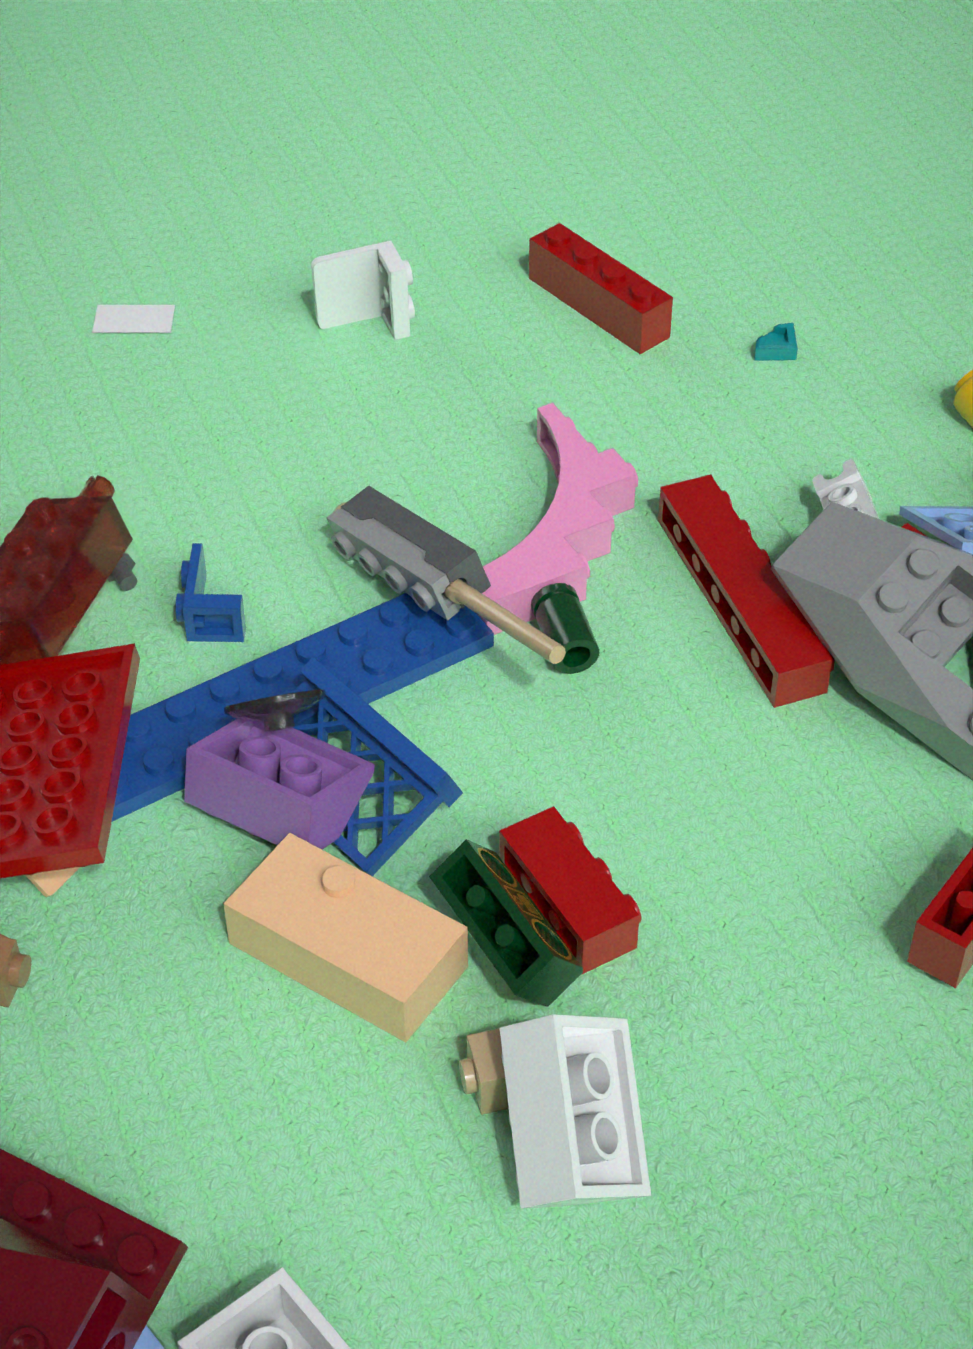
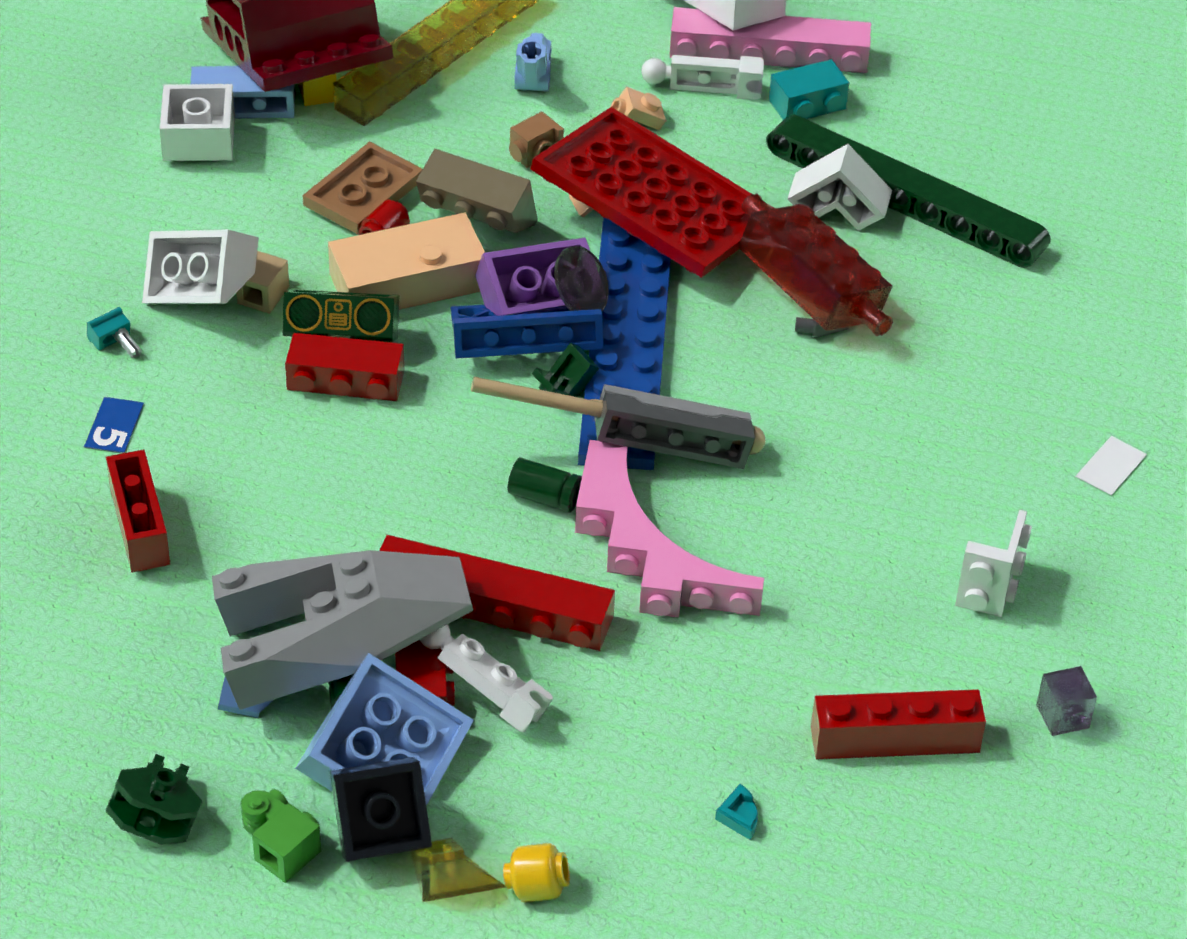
camera: 125 degrees right, 0 degrees up
(175, 924) = (479, 190): none -> dark tan slope
(207, 615) = (732, 330): blue bracket -> none
(226, 1094) = (361, 186): none -> medium nougat plate
(284, 1016) = (385, 216): none -> red brick
(393, 694) = (569, 373): none -> dark green bracket
(469, 219) = (1066, 700): none -> brick
(739, 1176) = (112, 328): none -> teal piece
(861, 1070) = (114, 424): none -> blue sticker

